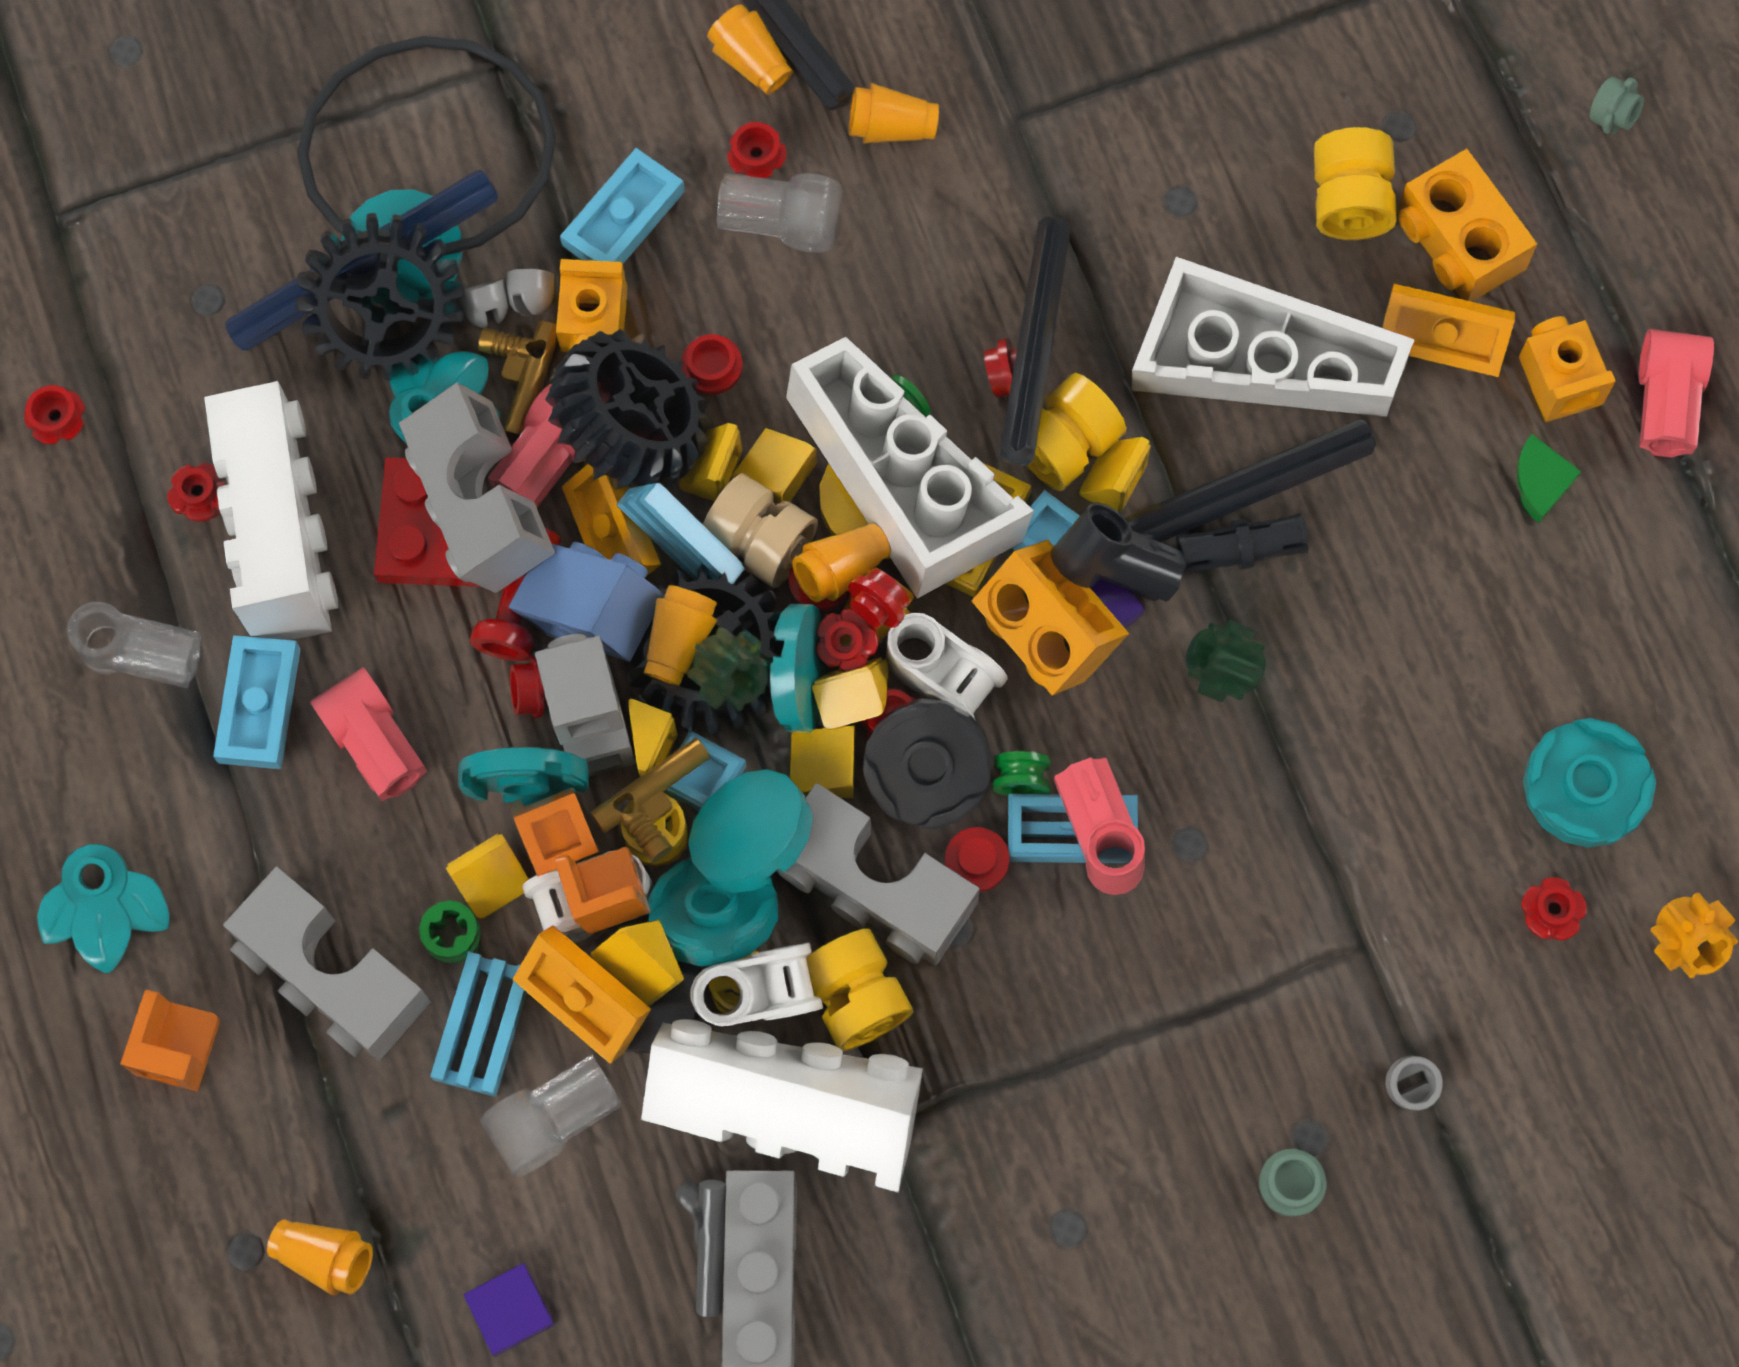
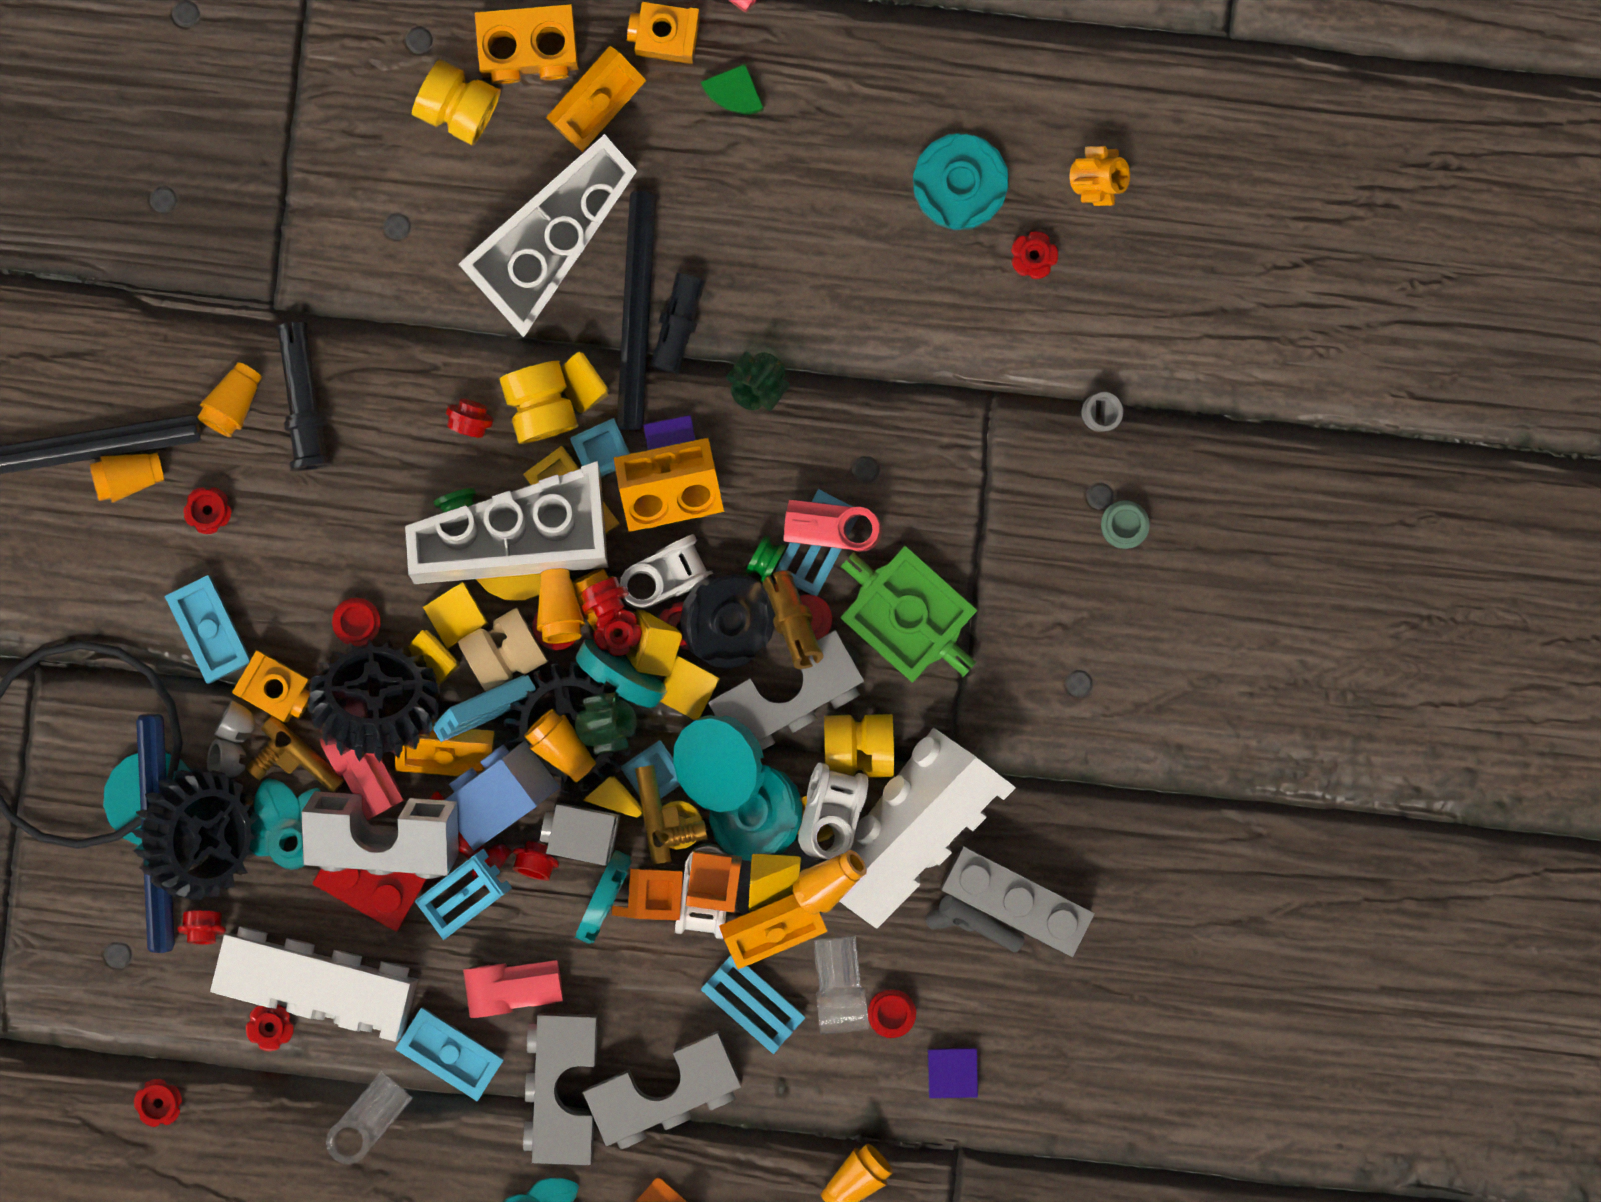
camera: 70 degrees left, 15 degrees up
(221, 862) = (556, 1131): none -> light grey arch
(279, 362) = (202, 927): none -> red plate
(436, 918) = (693, 991): green bush -> none
(477, 631) = (486, 877): none -> medium azure tile
(488, 876) = (656, 951): yellow slope -> none
(547, 1197) = (891, 1013): none -> red plate
(664, 1017) = (828, 882): none -> light orange cone
(795, 211) = (270, 505): clear piece -> none
(910, 201) = (305, 420): none -> black pin
(965, 832) = (793, 619): none -> pearl gold pin
(1035, 342) = (463, 390): black axle -> none
(1044, 973) = (908, 614): none -> bright green plate
(1107, 549) = (644, 420): black piece -> none

